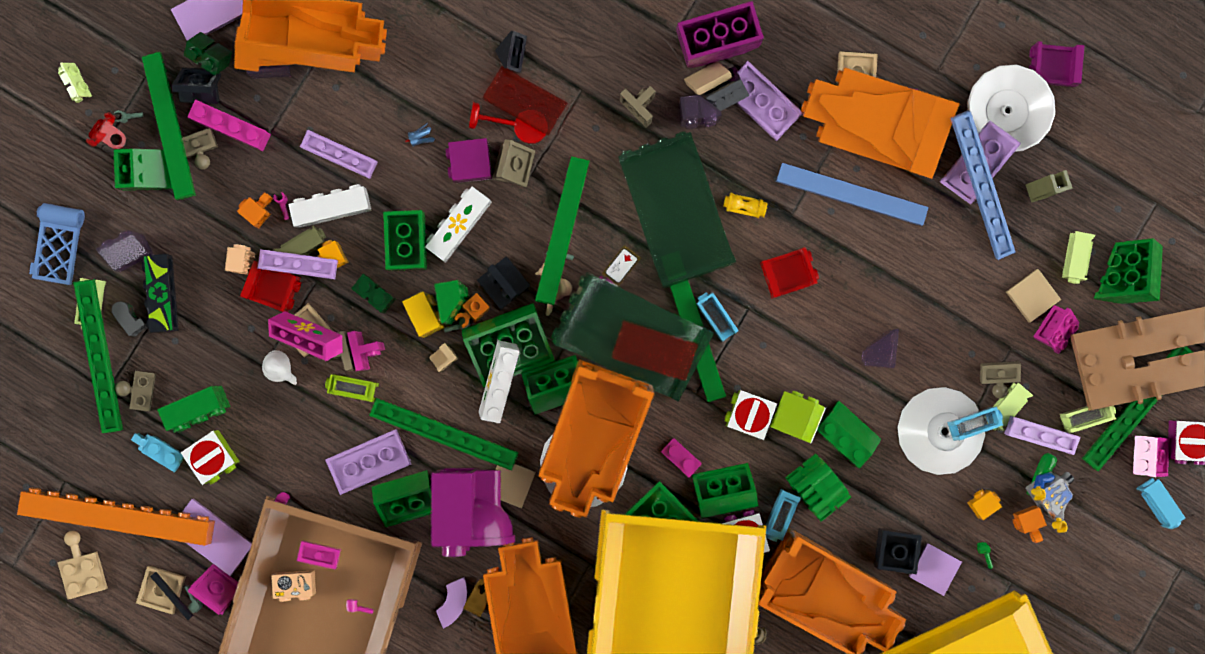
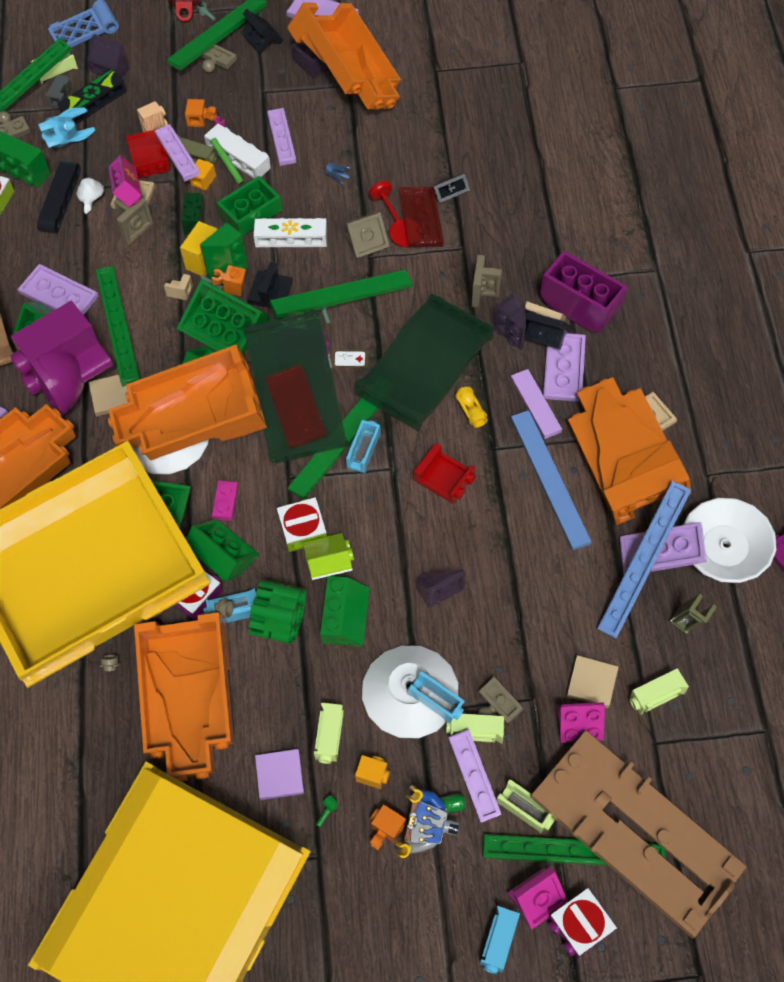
camera: 50 degrees right, 25 degrees down
(141, 170) = (171, 32): green slope -> none
(185, 346) = (61, 129): none -> medium azure piece
(213, 59) = (283, 17): dark green piece -> none
(229, 125) = (247, 63): dark pink brick -> none
(261, 397) = (58, 197): none -> black beam
(336, 225) = (227, 161): none -> bright green bar
(351, 387) = (108, 243): lime window -> none
(361, 352) = (142, 229): dark pink bracket -> none
(469, 160) = (343, 207): magenta piece -> none
(499, 381) = (186, 326): white brick -> none
(779, 151) = (536, 404): none -> lavender tile
(787, 526) = (225, 608): none -> dark tan plate
(897, 551) = (270, 722): black brick -> none
(933, 513) = (328, 733): none -> yellowish green window
(1132, 273) = (687, 749): green wedge -> none

